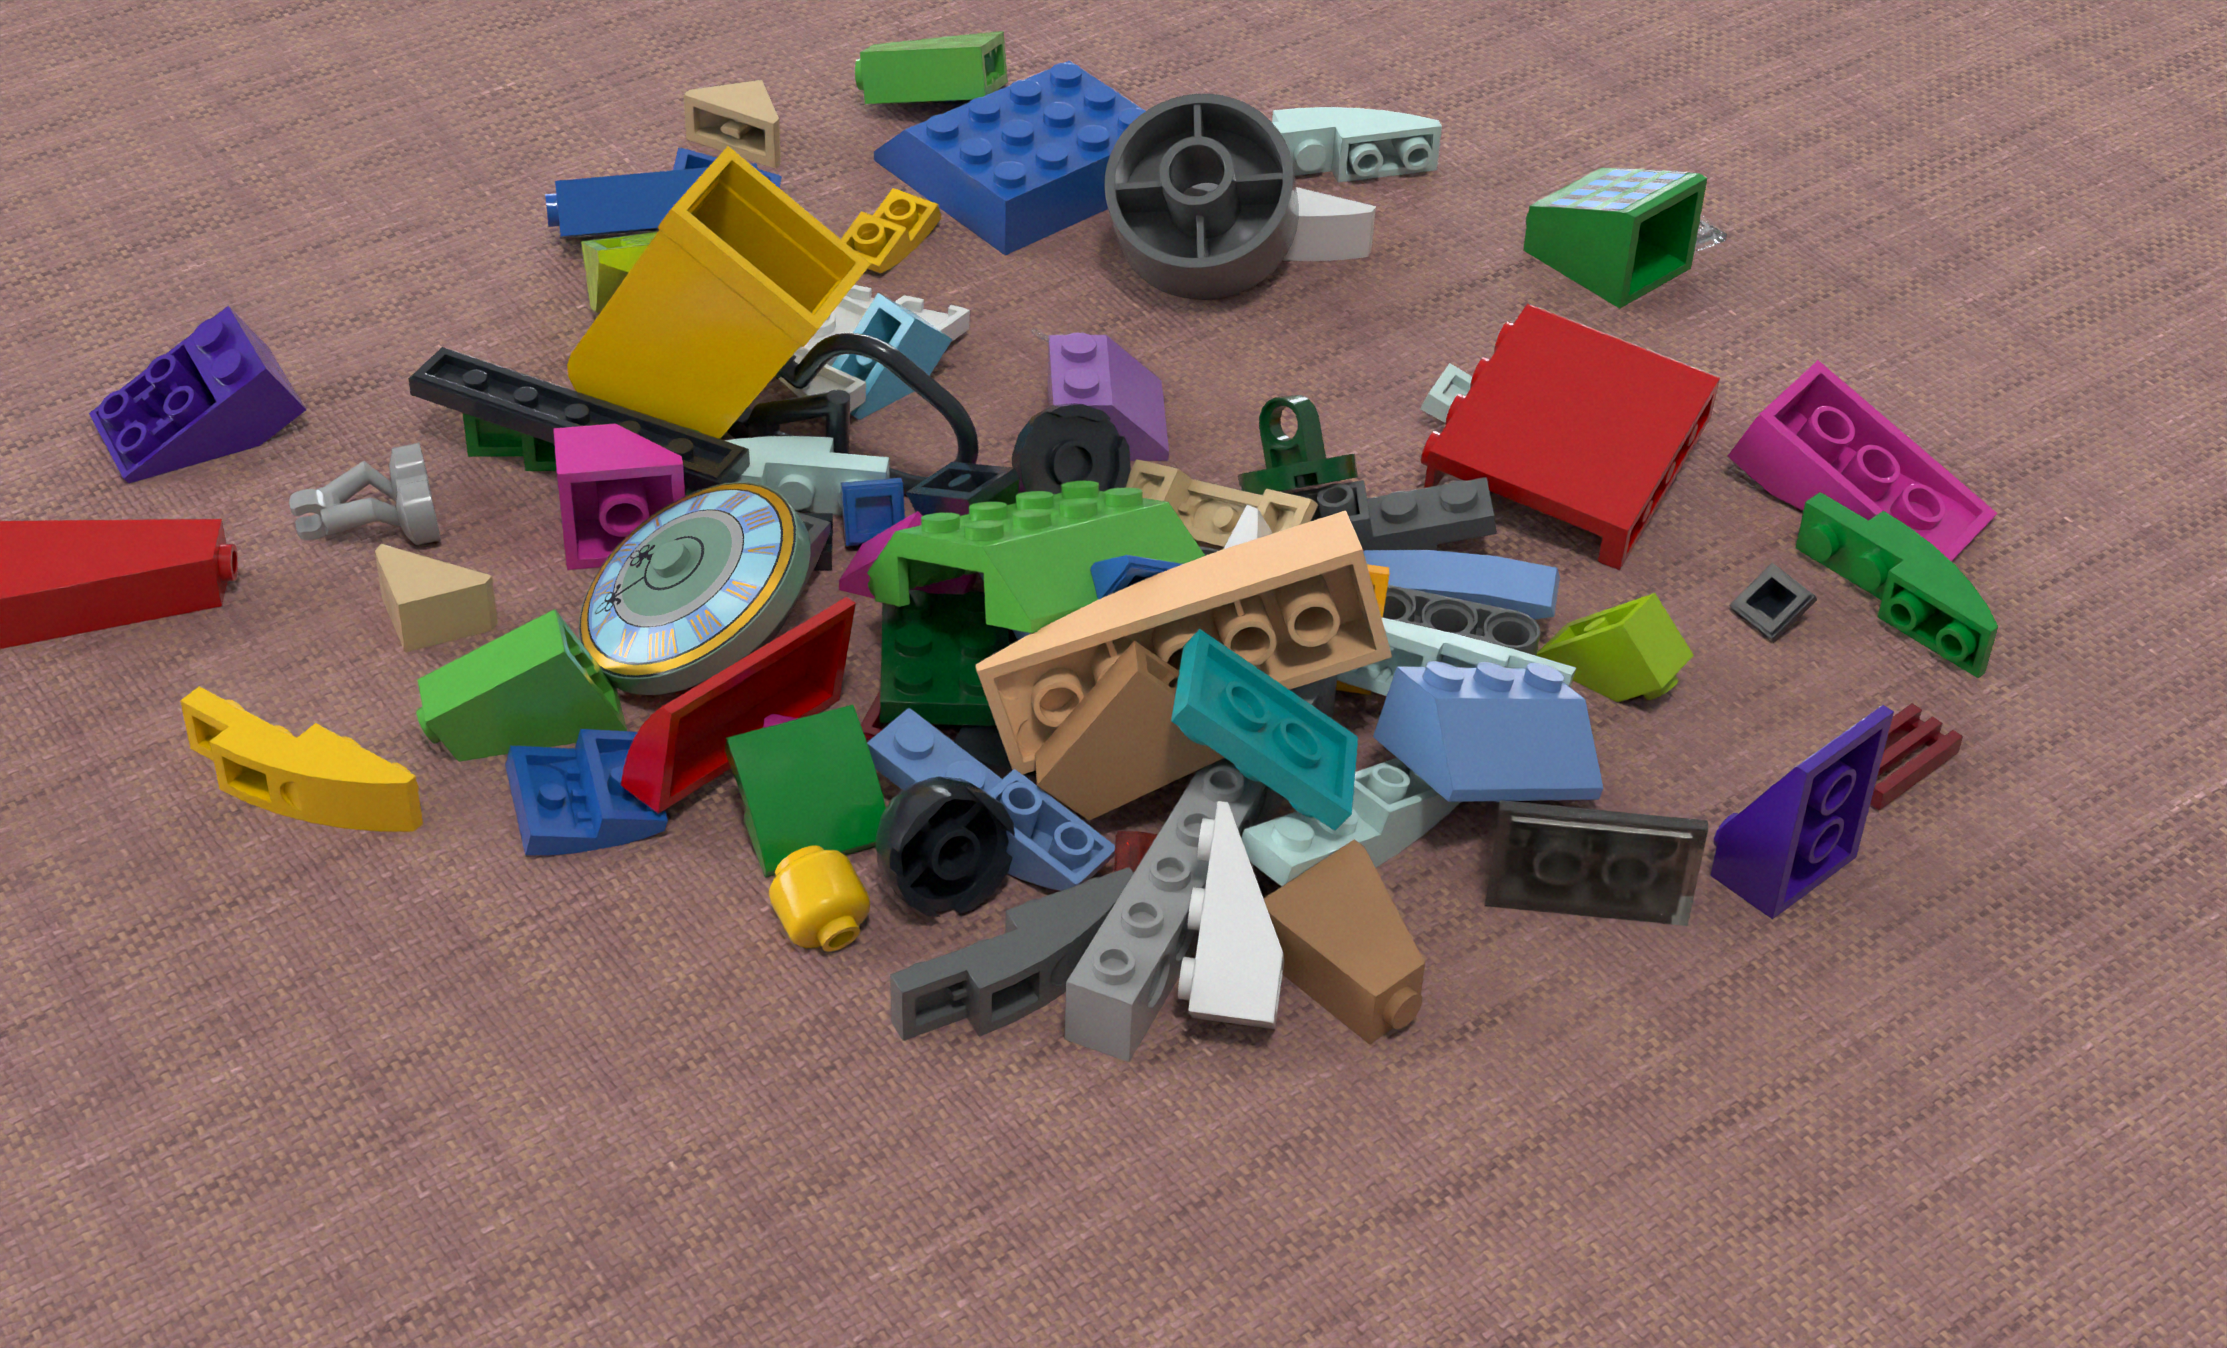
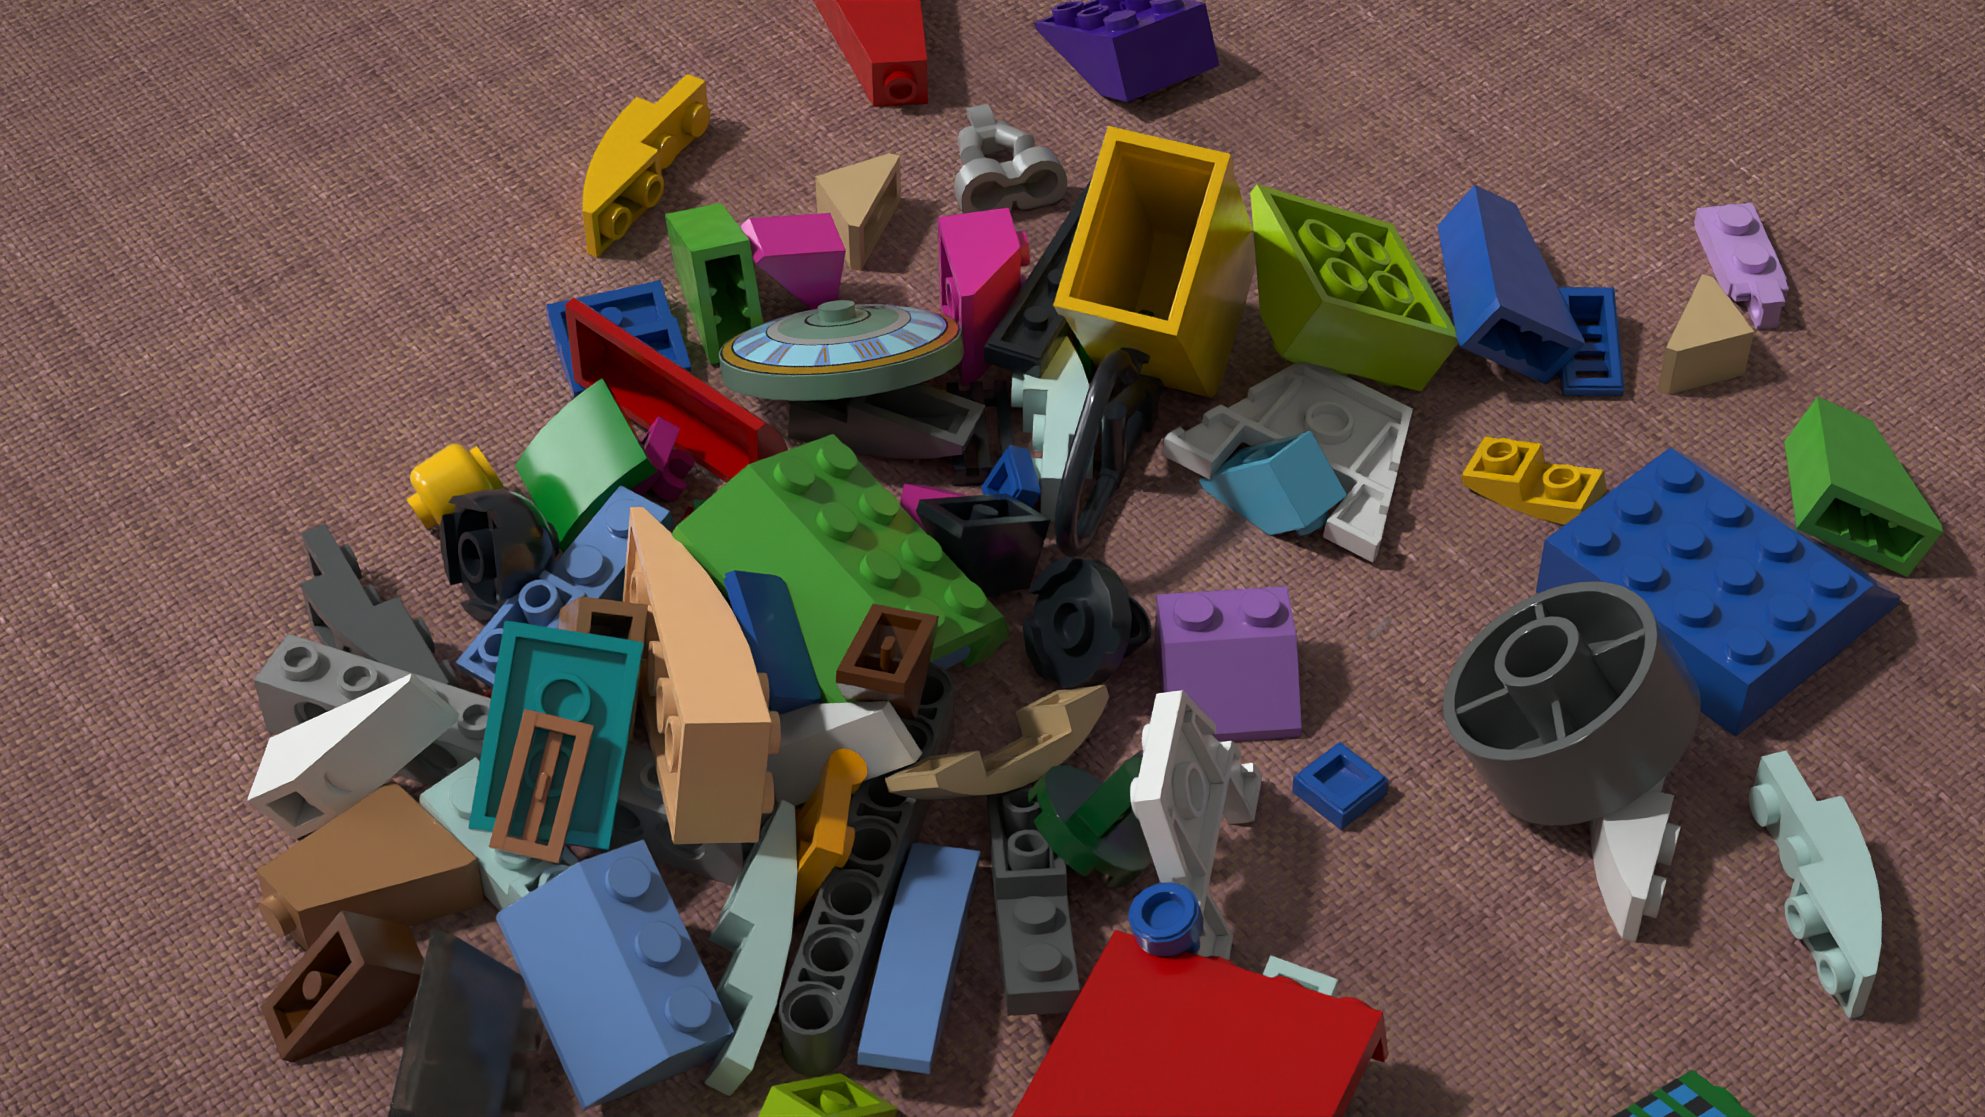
camera: 90 degrees right, 5 degrees up
(534, 592) = (799, 254): none -> dark pink slope
(628, 97) = (1743, 260): none -> lavender hinge
(1197, 506) = (889, 659): none -> reddish brown slope
(1223, 367) = (1340, 785): none -> blue tile
(1322, 745) = (557, 728): none -> nougat tile
(1340, 377) = (1180, 802): none -> white wing
(1434, 409) = (1166, 920): none -> blue tile
(1489, 953) = (344, 985): none -> reddish brown slope

